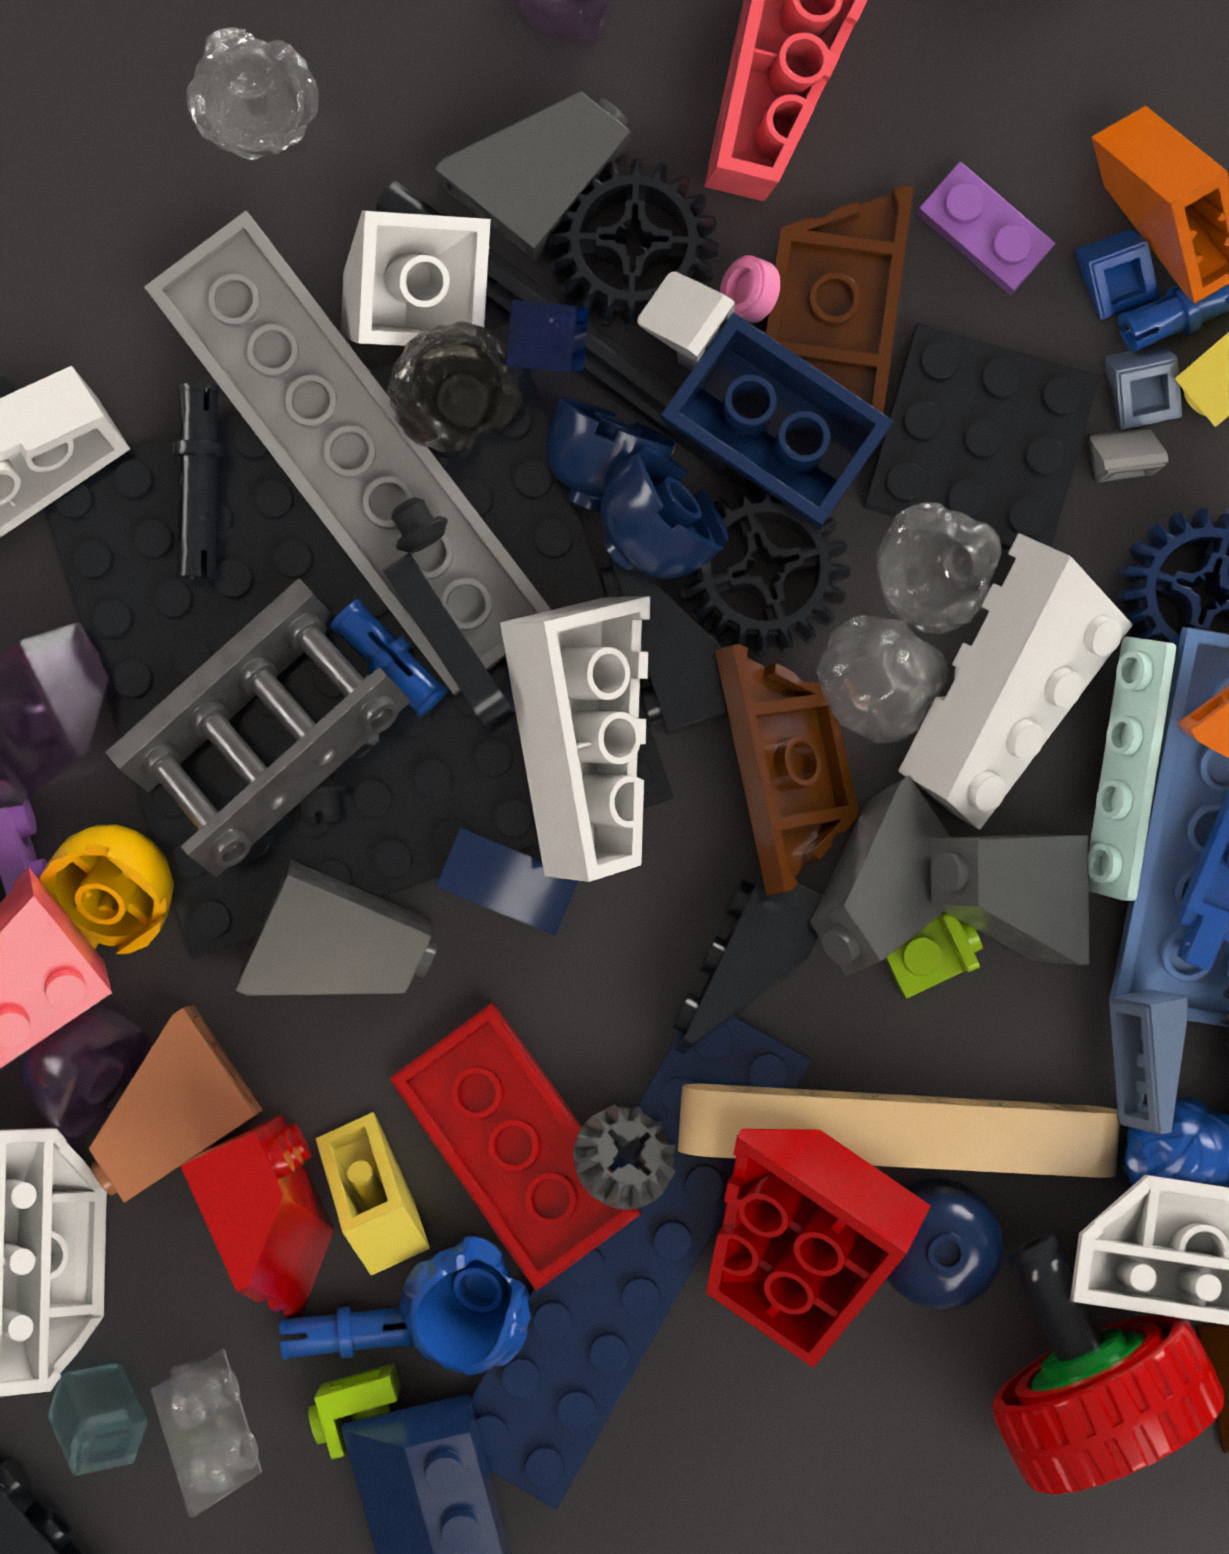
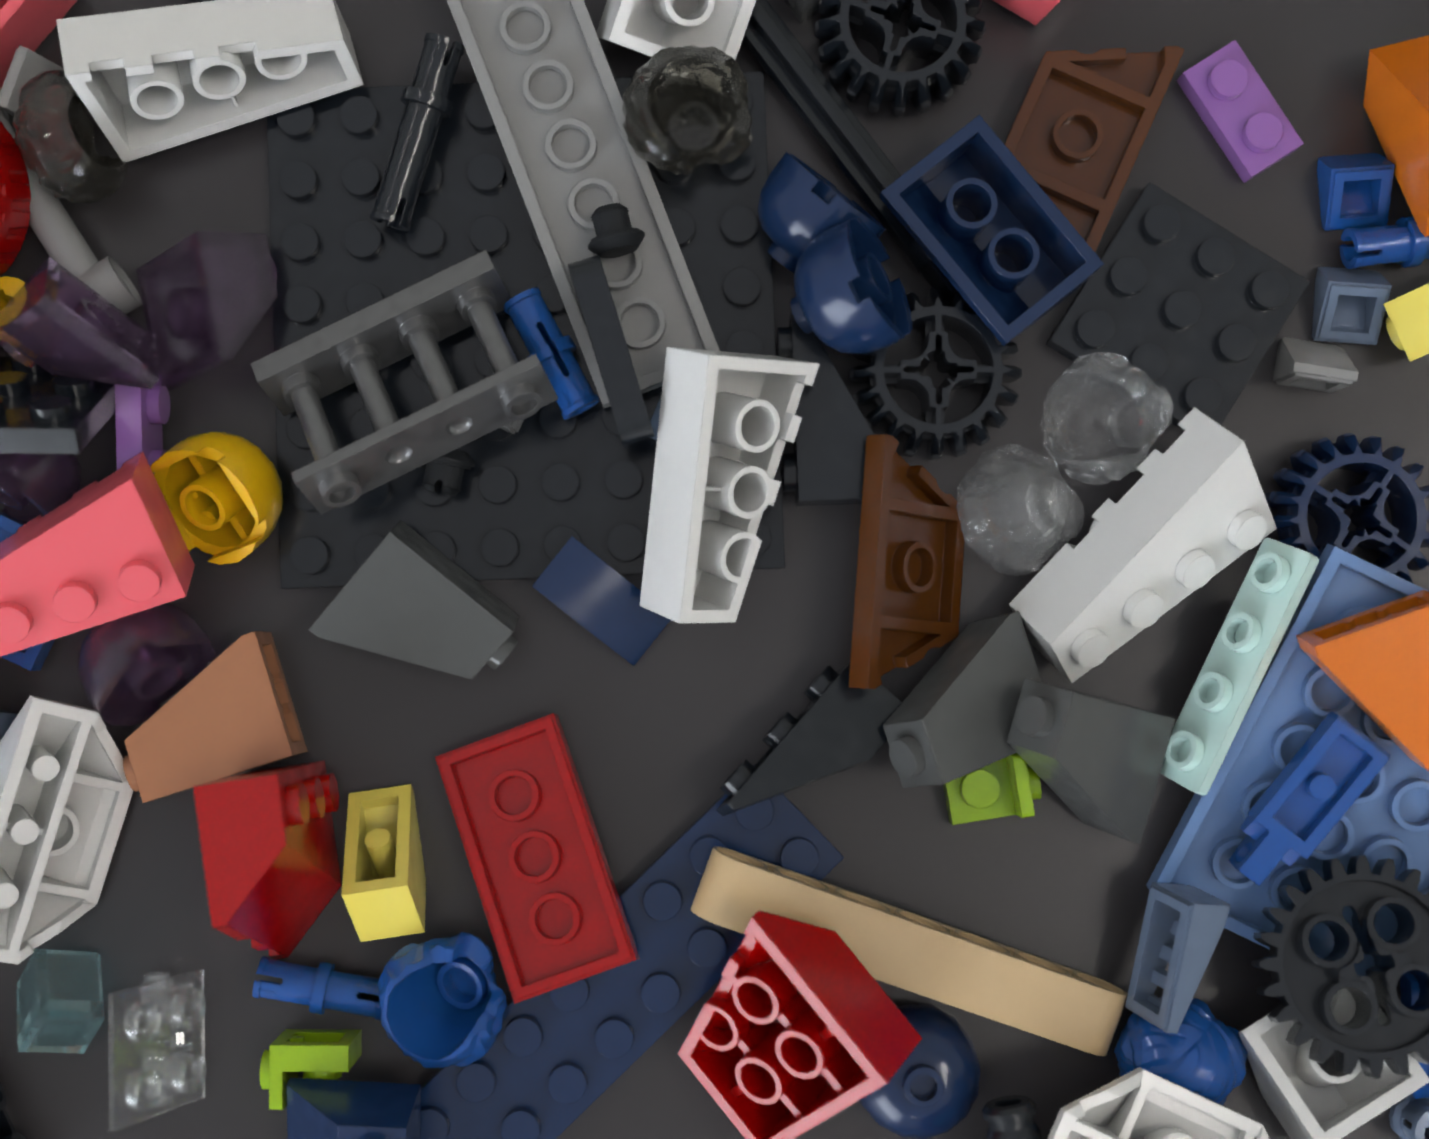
camera: 15 degrees right, 0 degrees up
(547, 336) = (792, 86): clear blue brick -> none
(627, 1186) = (610, 887): dark grey gear -> none
(686, 316) = (932, 106): white slope -> none
(753, 287) = (1000, 100): bright pink tile -> none

